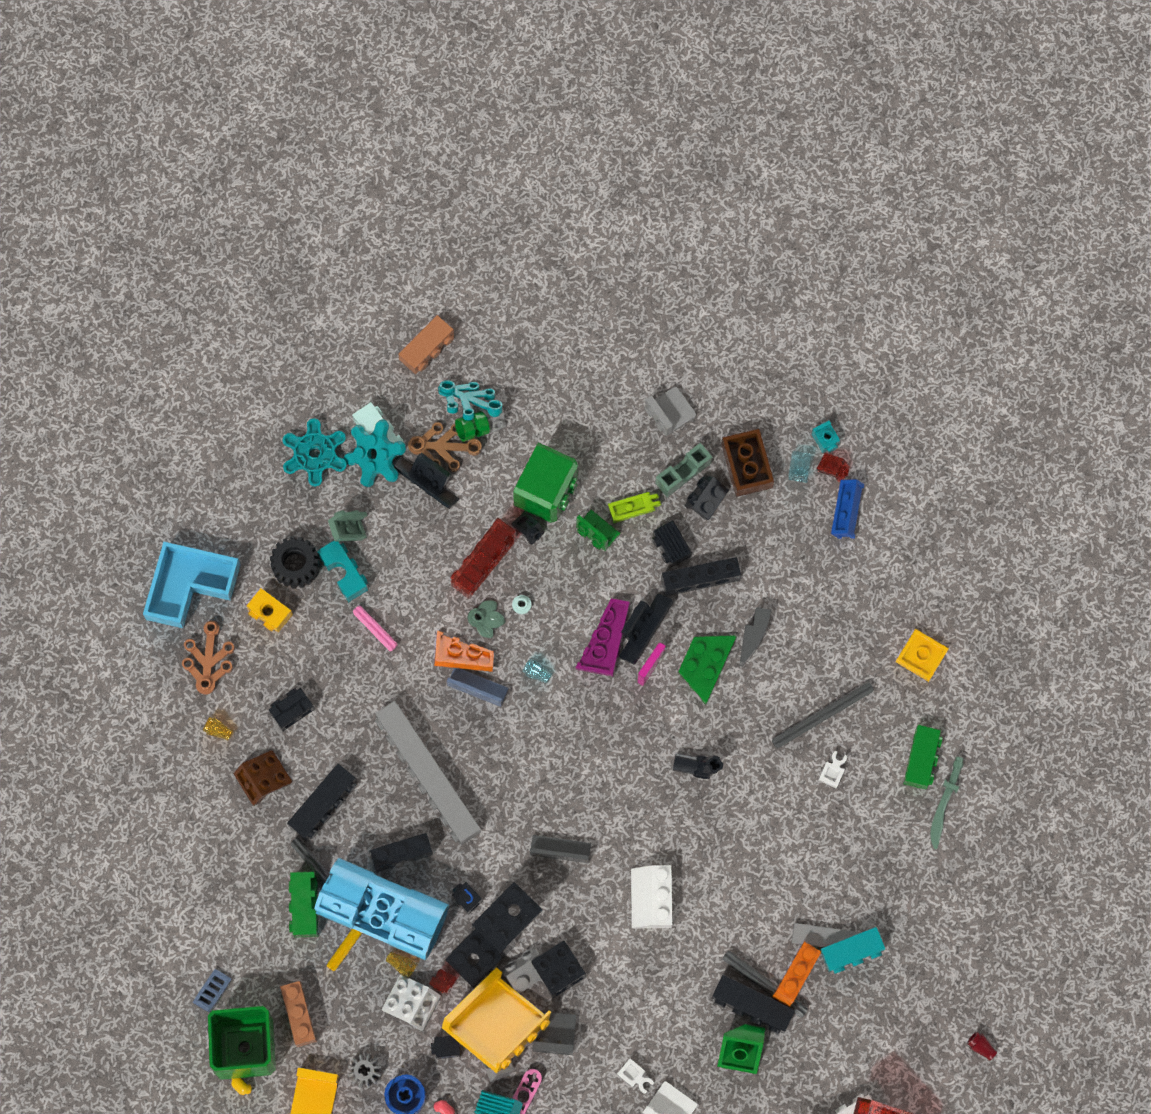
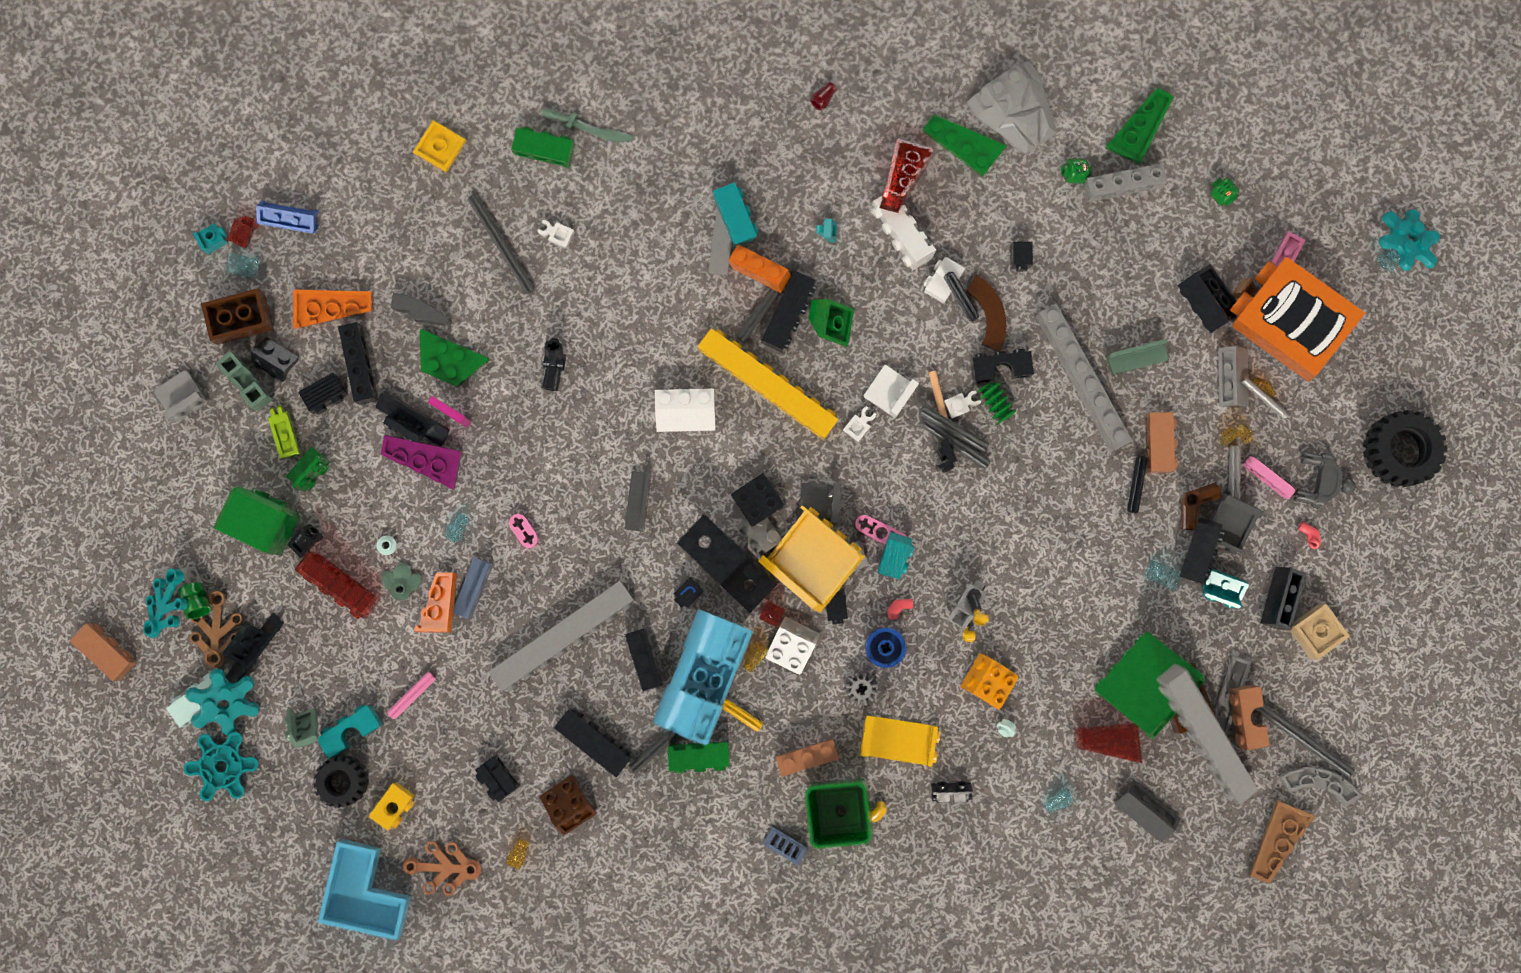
camera: 90 degrees left, 10 degrees up
(535, 739) = (520, 533): none -> bright pink beam
(677, 982) = (768, 384): none -> yellow brick
(759, 546) = (322, 306): none -> orange wing
(838, 1048) = (828, 230): none -> teal tile

